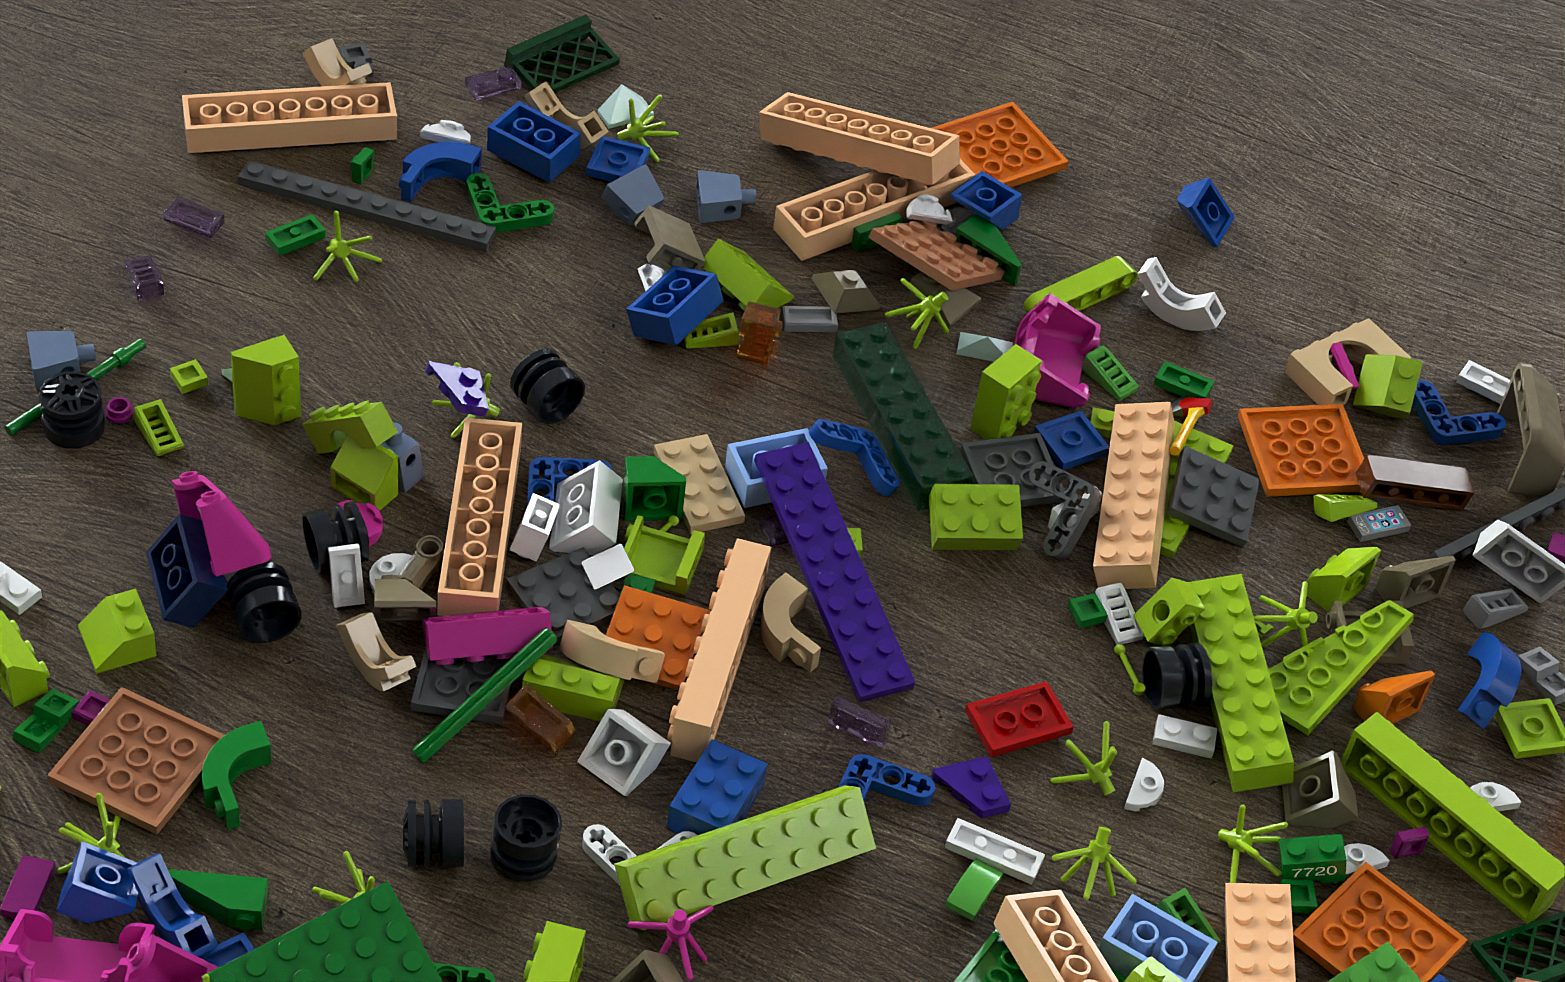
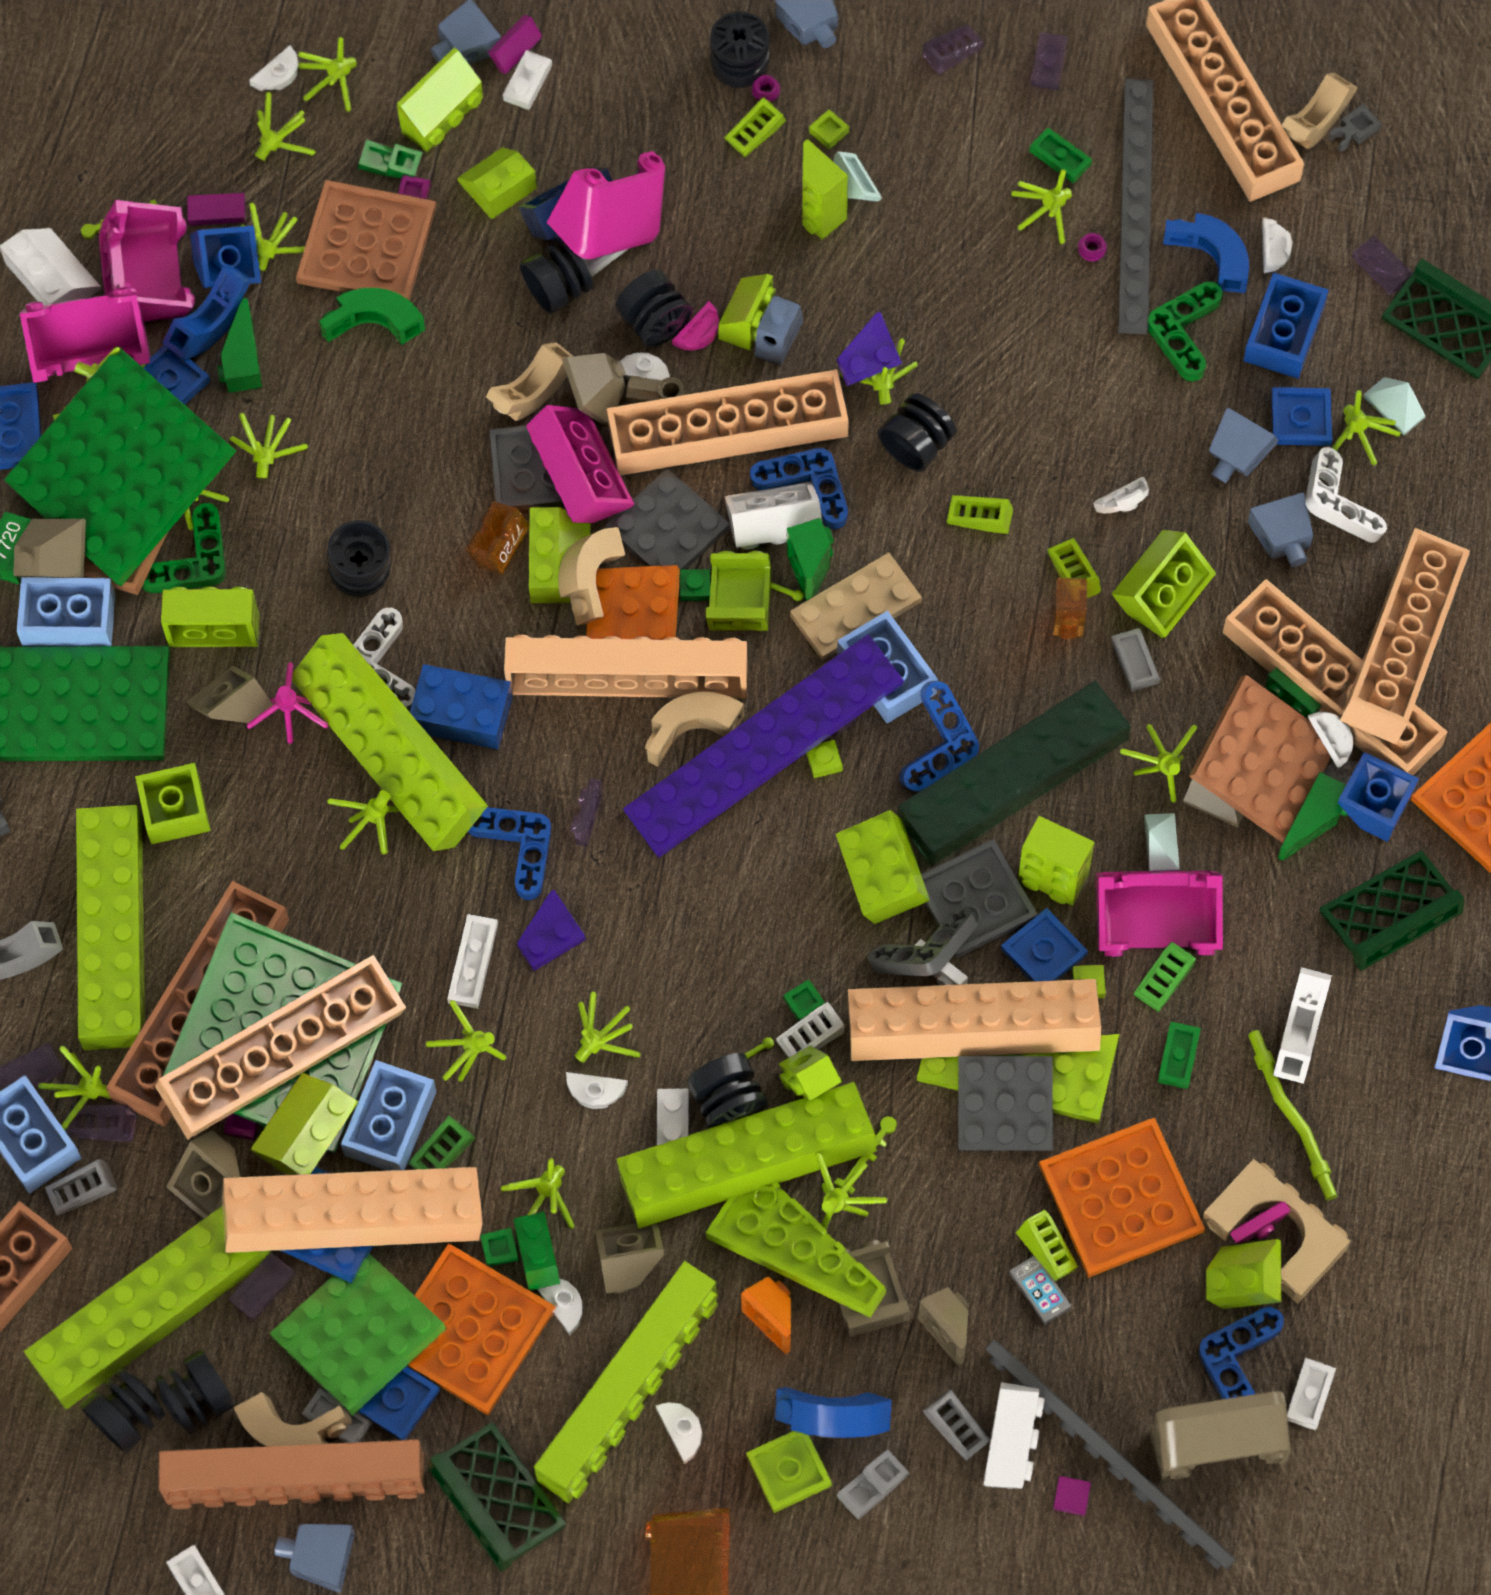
camera: 85 degrees right, 20 degrees up
(118, 358) = (832, 65): green bar -> none
(346, 575) = (612, 330): white plate -> none
(362, 165) = (1186, 181): green plate -> none
(365, 423) = (768, 274): lime arch -> none
(397, 240) = (1092, 240): none -> magenta plate
(435, 833) = (341, 486): black wheel -> none
(484, 695) = (507, 483): green axle -> none
(534, 527) = (733, 471): white slope -> none
(546, 102) = (1334, 345): tan arch -> none
(607, 566) = (700, 546): white sticker -> none
(623, 751) = (491, 616): white slope -> none
(642, 360) = (979, 522): none -> lime slope
(673, 240) = (1174, 492): dark tan panel -> none
(674, 305) = (1080, 519): blue brick -> none
(707, 161) = (1322, 499): none -> white beam
(827, 880) = (372, 812): none -> lime plant
(845, 291) = (1187, 685): dark tan slope -> none
(974, 889) = (424, 950): bright green slope -> none
(1019, 719) = (640, 957): red plate -> none
(1089, 285) = (1285, 924): lime beam -> none
(1097, 223) = (1411, 924): none -> dark green fence
(1193, 409) = (1140, 1068): piece -> none
(1294, 329) = (1319, 1167): none -> lime bar
(1342, 576) = (929, 1248): lime slope -> none
(1409, 842) = (594, 1349): magenta tile -> none
(1414, 482) = (1100, 1314): reddish brown brick -> none

